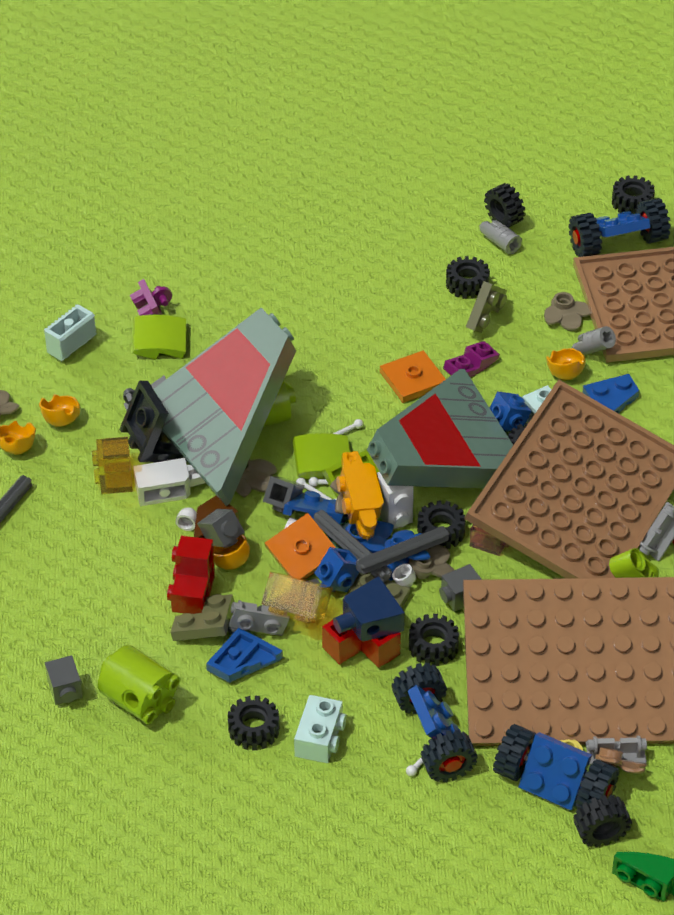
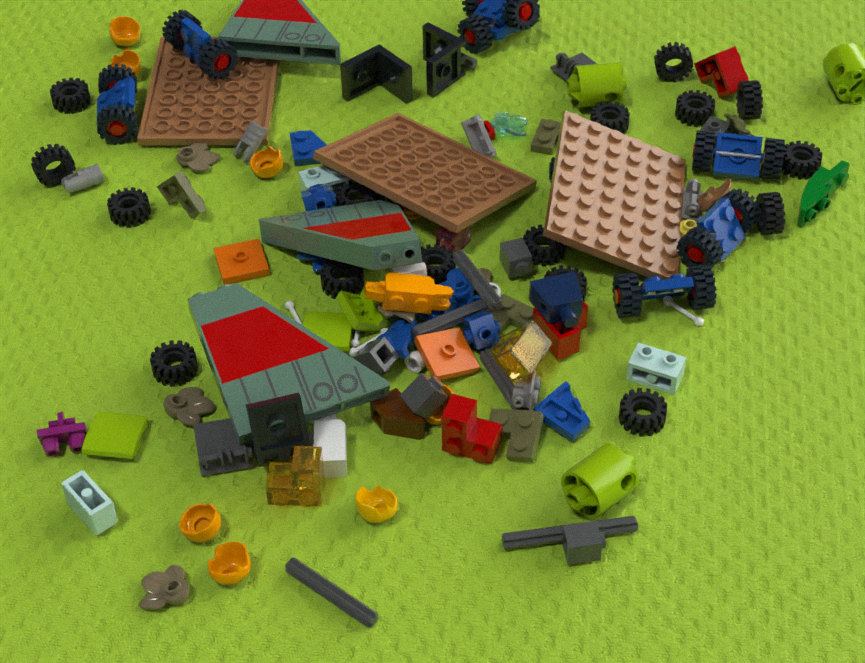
camera: 80 degrees left, 0 degrees up
(89, 687) = (554, 534): none -> dark grey axle
(96, 522) = (376, 504): none -> yellow hair
(186, 519) = (382, 435): white hinge -> none
(475, 359) = (236, 222): magenta slope -> none
(632, 565) = (521, 158): lime piece -> none

